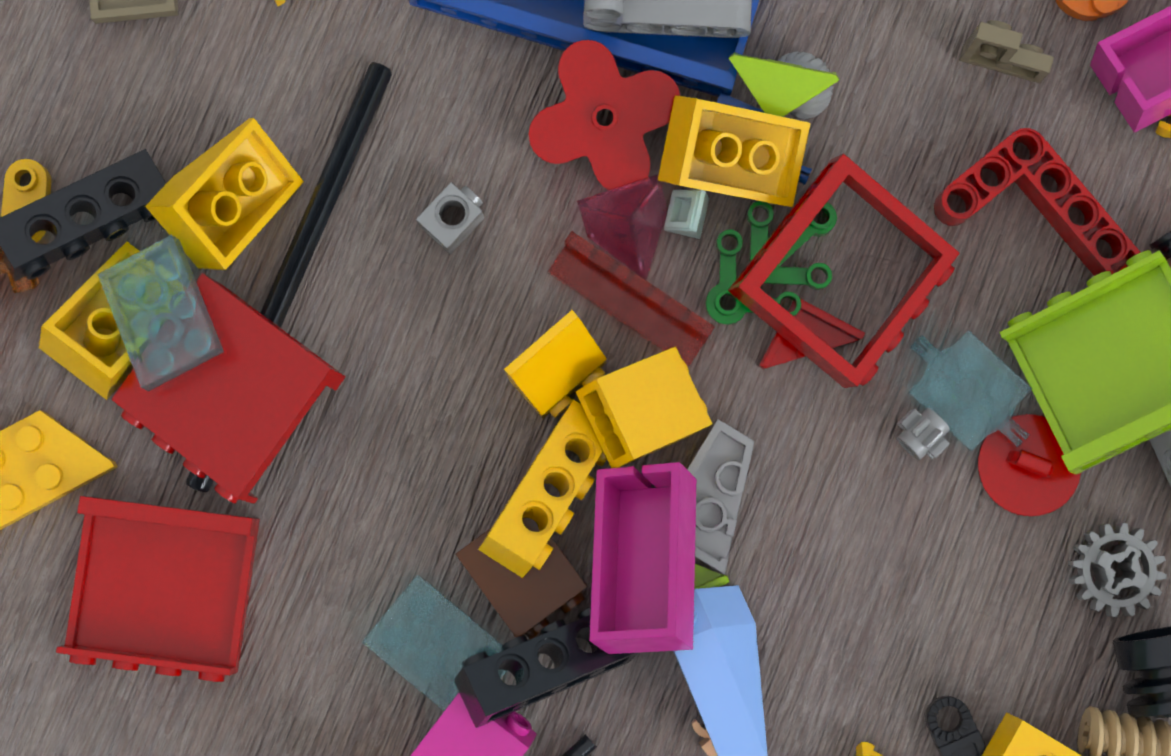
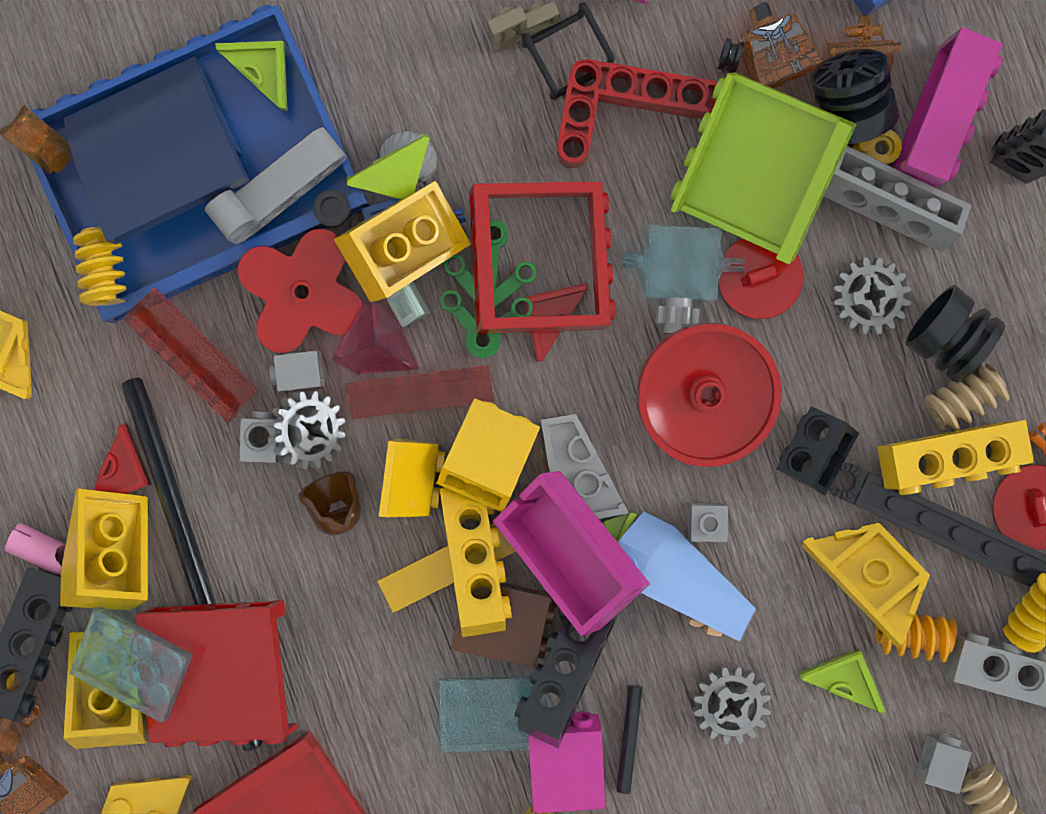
camera: 45 degrees left, 5 degrees up
(166, 140) = (36, 548): none -> bright pink piece
(306, 135) = (123, 466): none -> red tile
(457, 87) = (190, 354): none -> clear red fence
(469, 317) = (327, 491): none -> reddish brown hair
(484, 236) = (293, 436): none -> light grey gear
(494, 472) = (429, 575): none -> yellow tile
(537, 186) = (297, 371): none -> light grey brick
(696, 68) = (332, 208): none -> black tile
(789, 644) = (707, 522): none -> light grey brick
(892, 529) = (709, 394): none -> red dish
(952, 677) = (825, 454): none -> black brick
(997, 75) = (528, 42): none -> black piece

